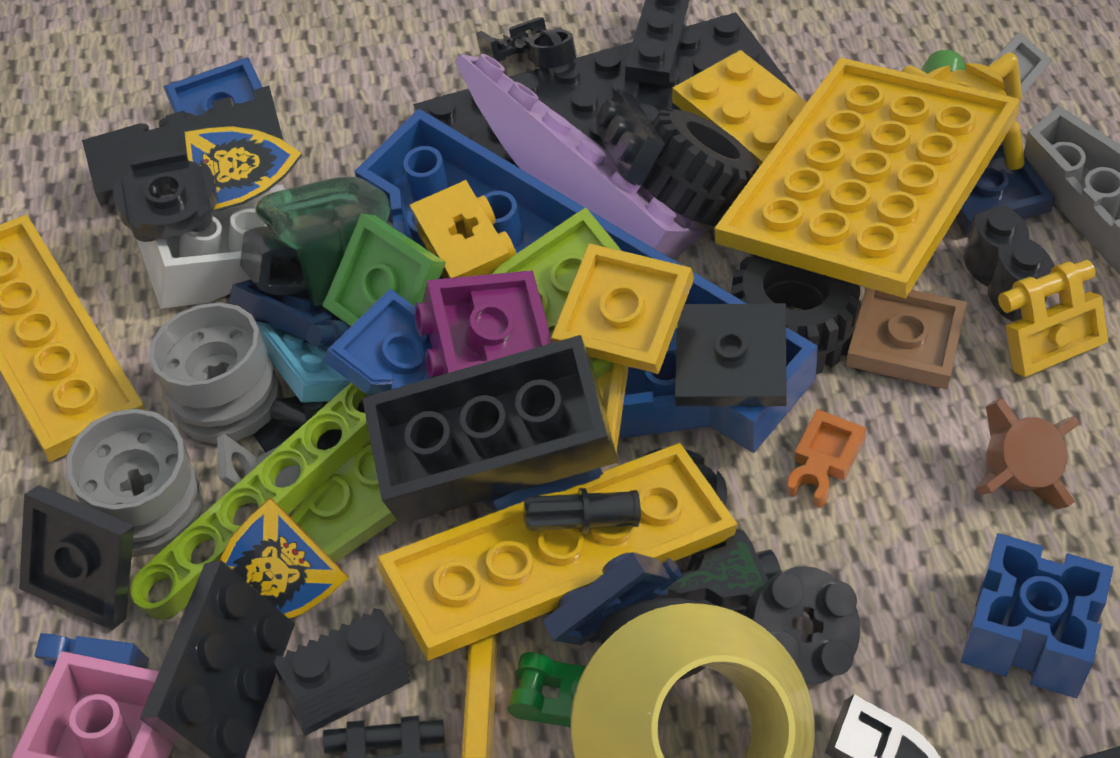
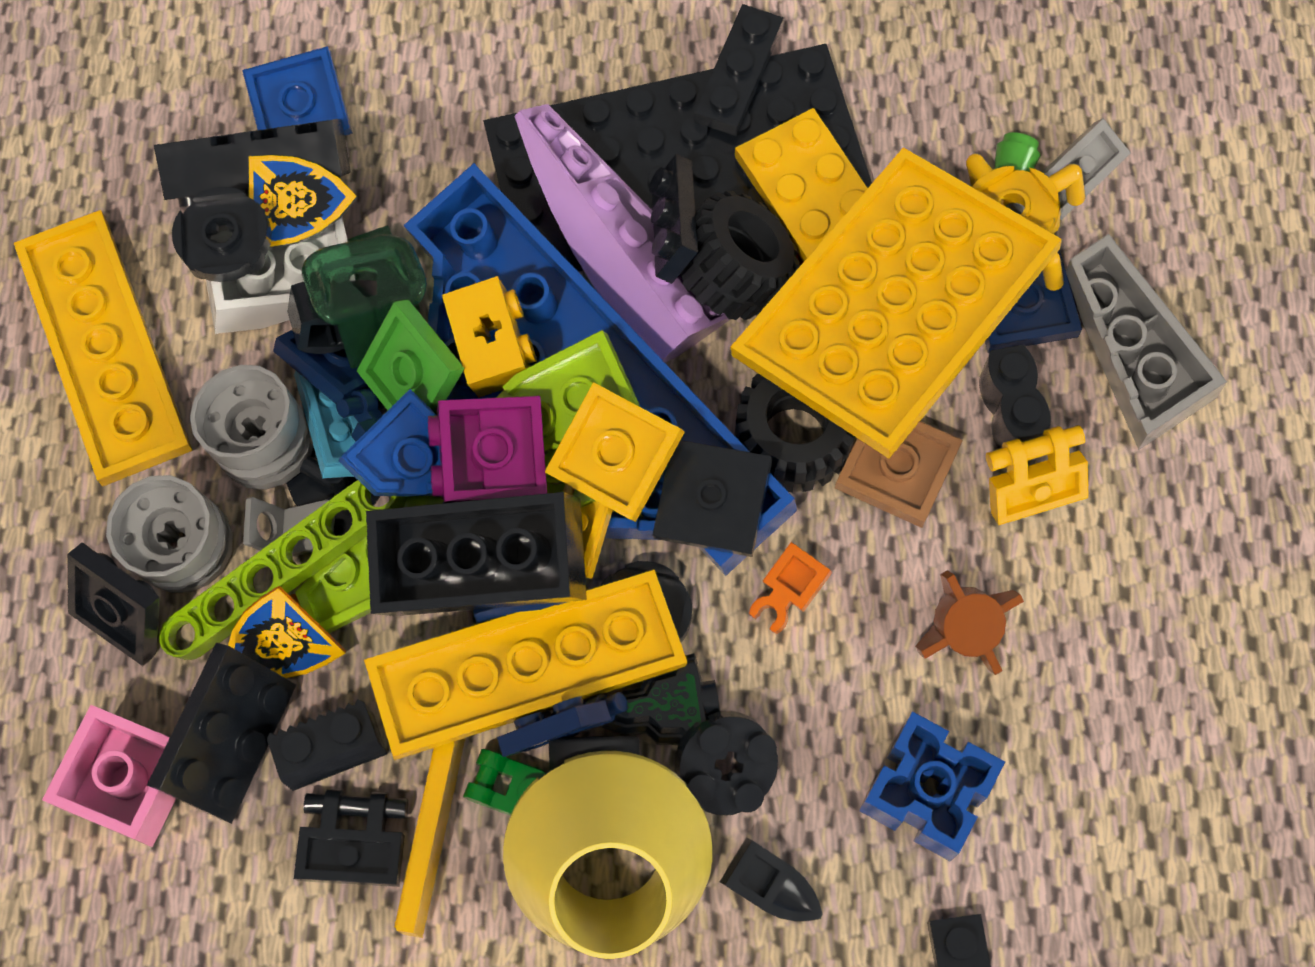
camera: 10 degrees right, 20 degrees up
(51, 645) = (129, 700): blue plate -> none
(545, 48) = (616, 59): black piece -> none
(582, 511) = (547, 640): black axle -> none

